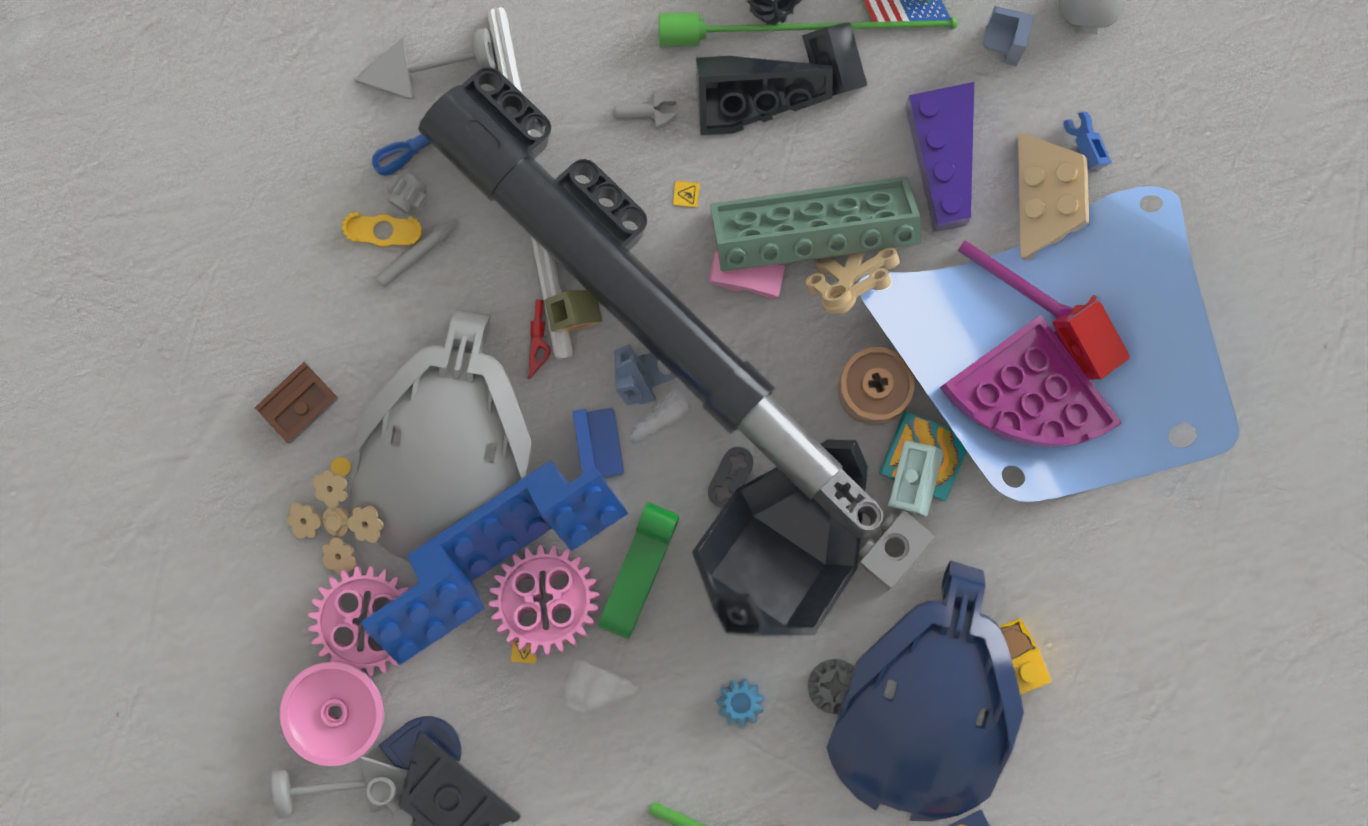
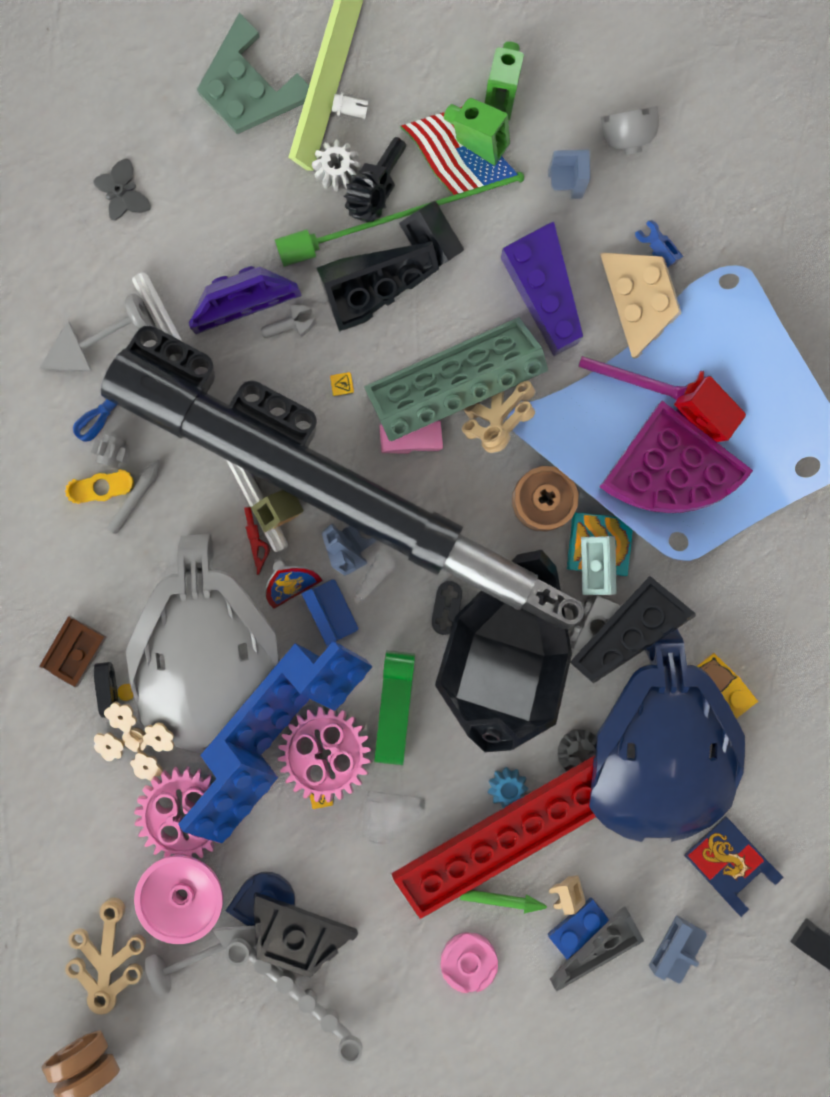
camera: 15 degrees left, 5 degrees up
(225, 762) = (105, 961): none -> tan plant
(321, 451) = (105, 686): none -> black beam
(561, 395) = (288, 582): none -> shield
(602, 65) = (240, 296): none -> dark purple wedge
(711, 757) = (498, 841): none -> red plate
(935, 555) = (637, 625): none -> black wing

